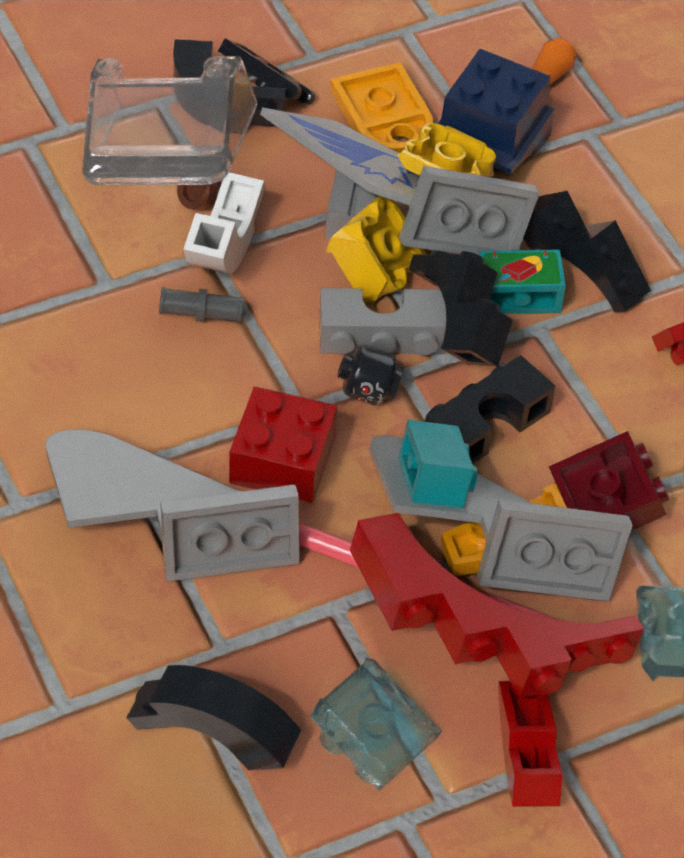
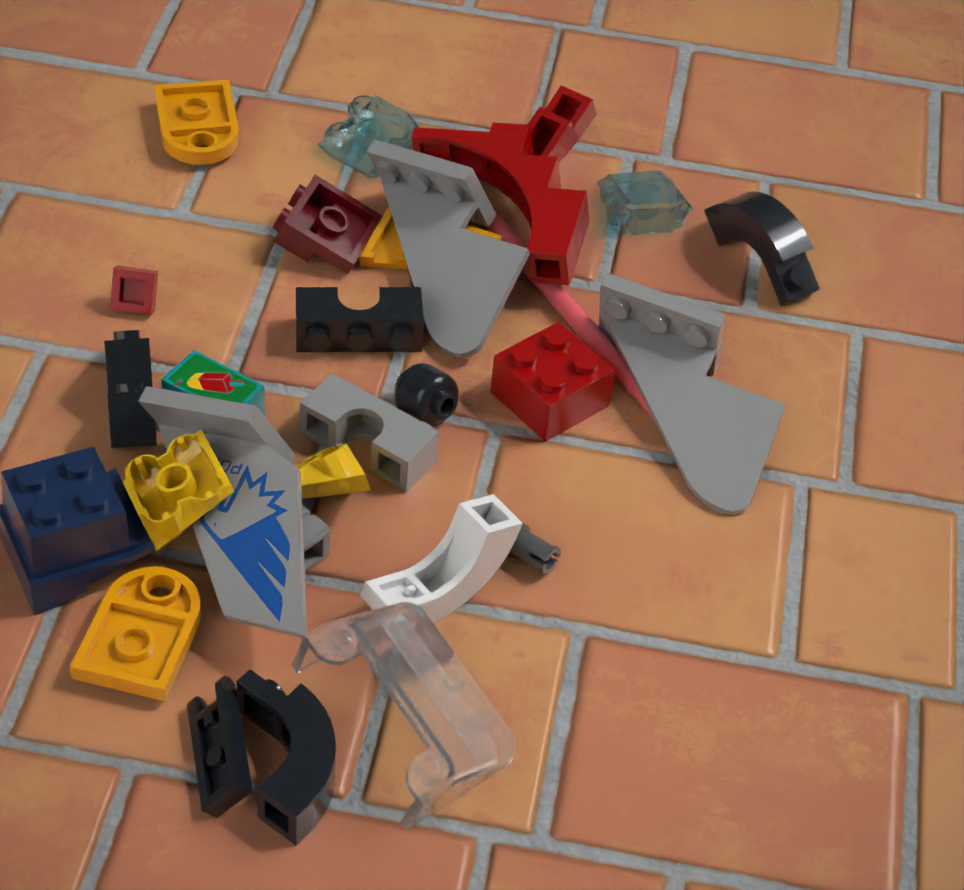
camera: 145 degrees left, 5 degrees down
(436, 464) = (463, 266): teal brick -> none
(473, 323) = (285, 387): black arch -> none

